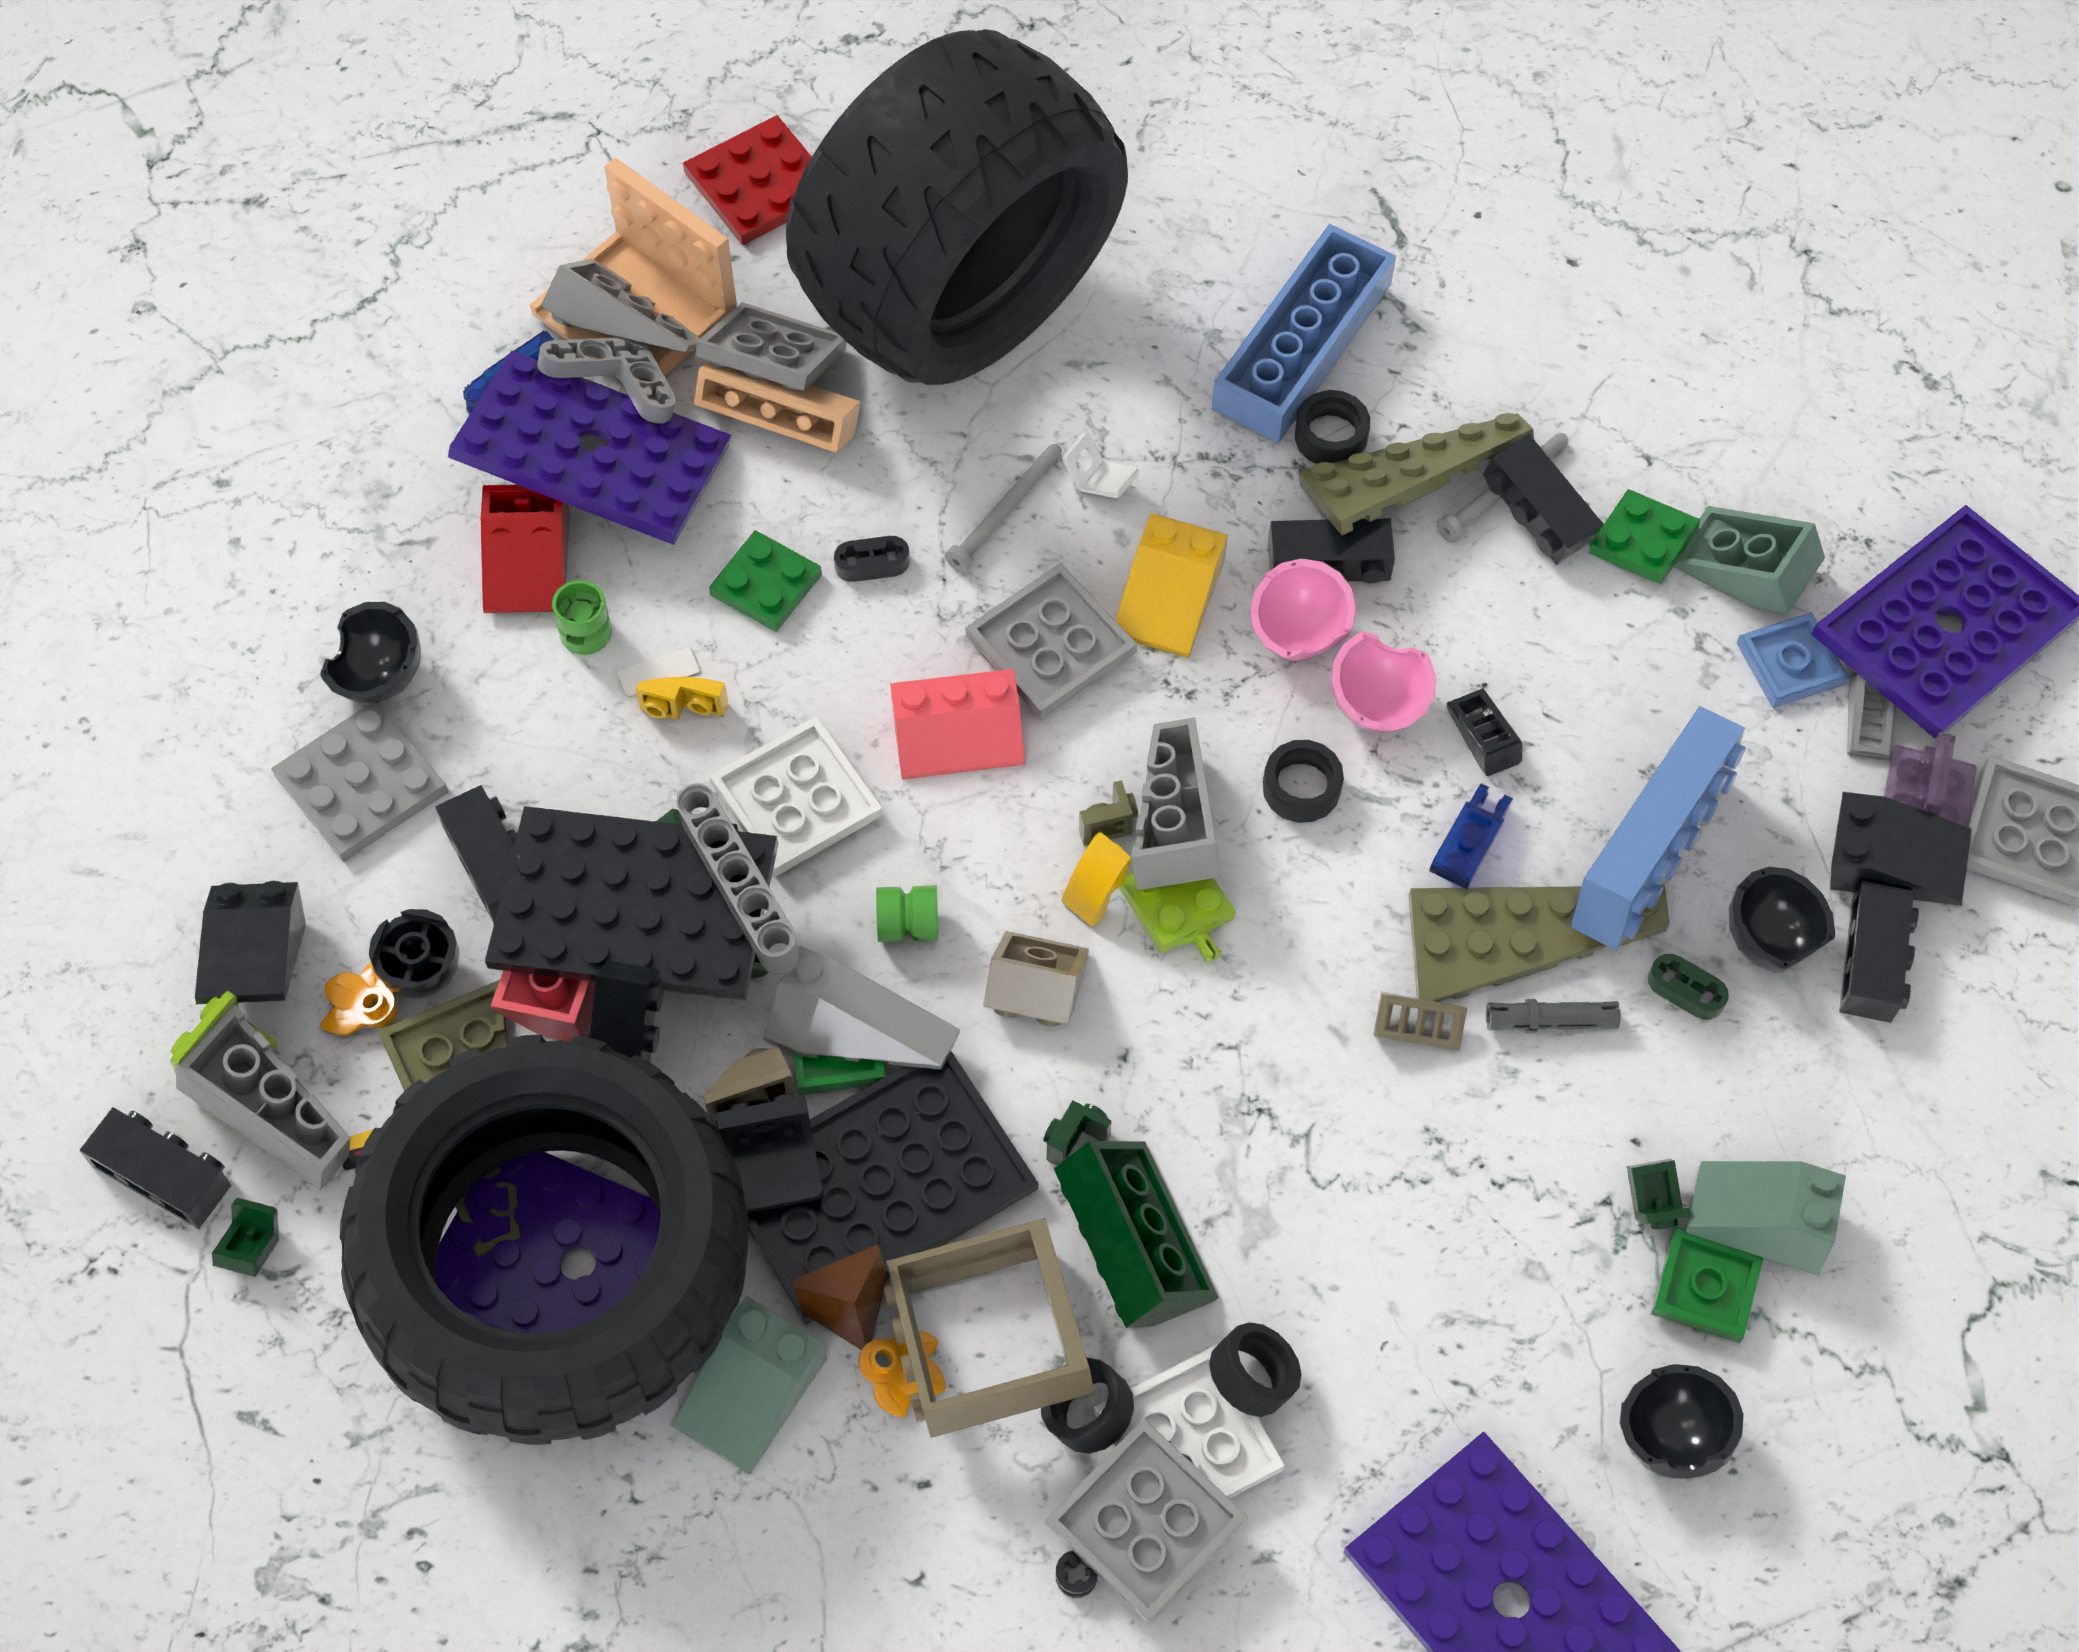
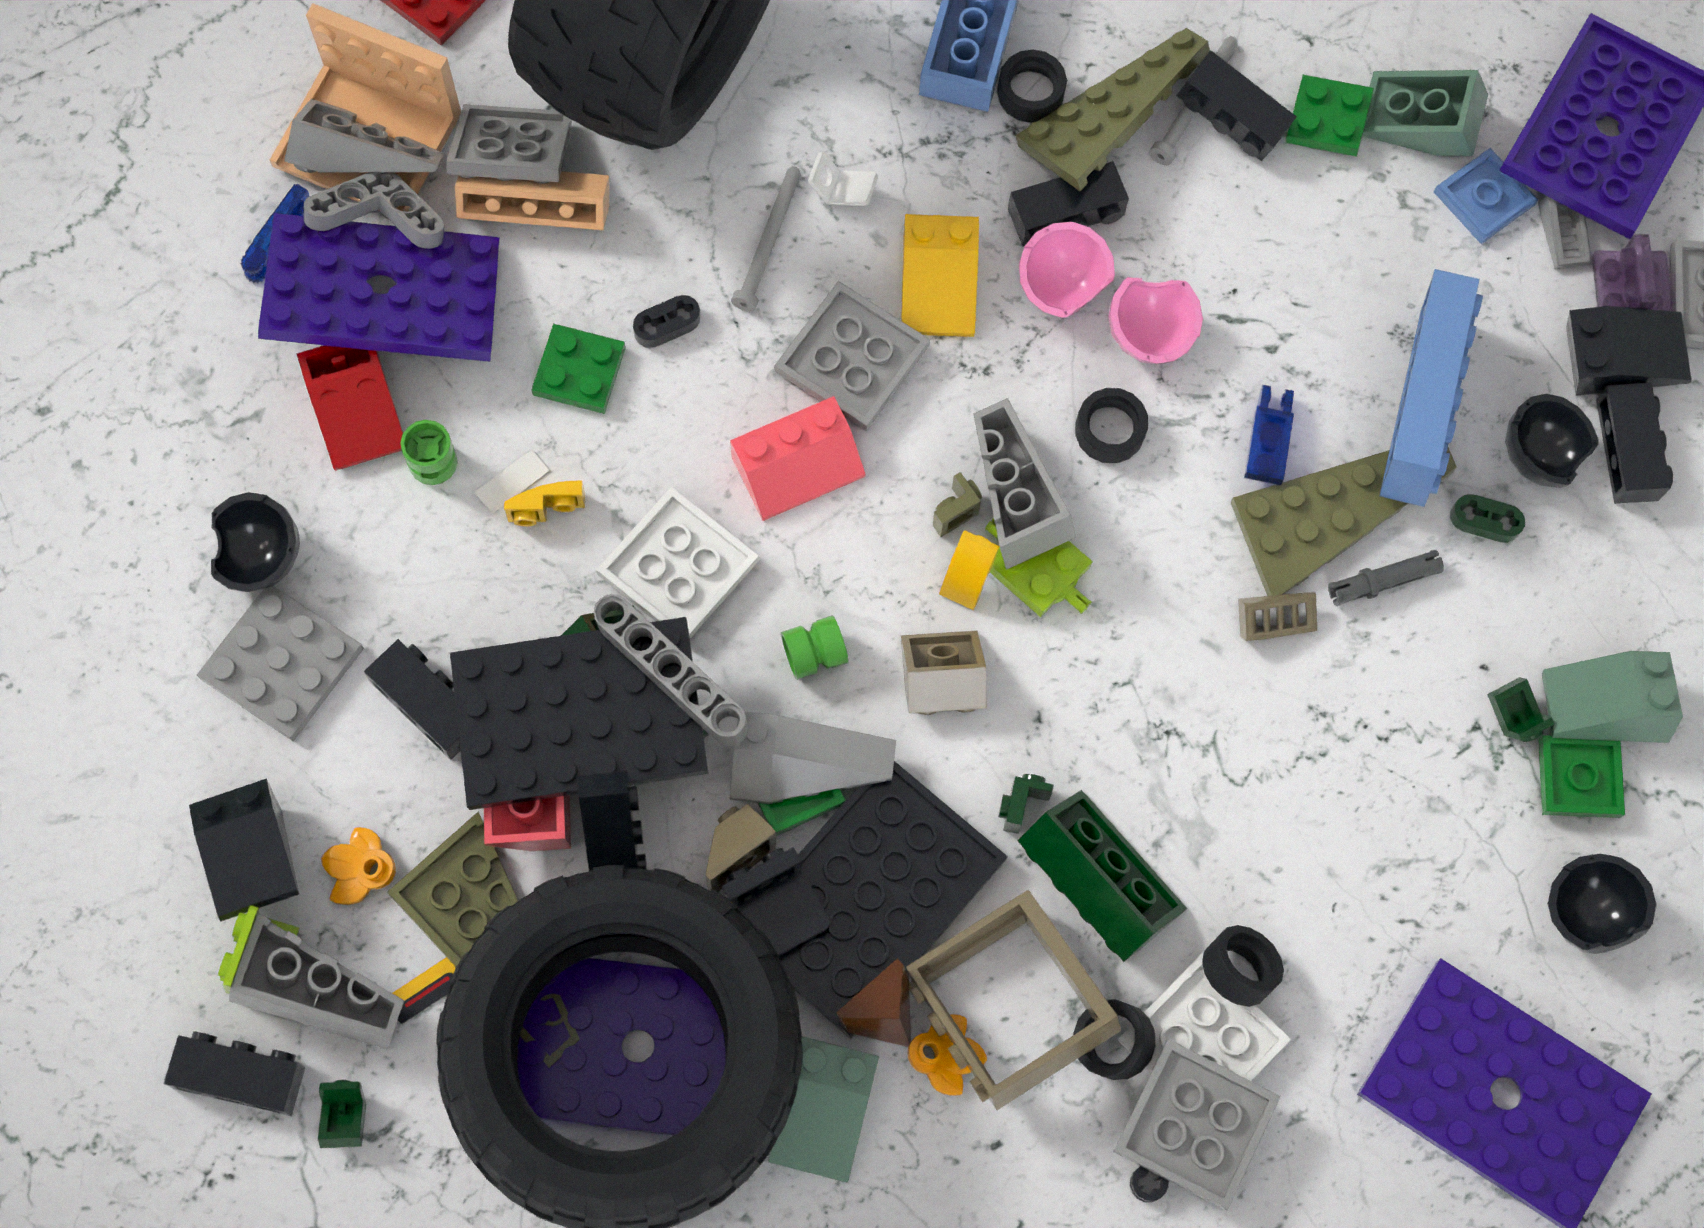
camera: 20 degrees left, 10 degrees up
(414, 953) = (389, 799): black cylinder -> none
(1496, 753) = (1263, 353): black slope -> none

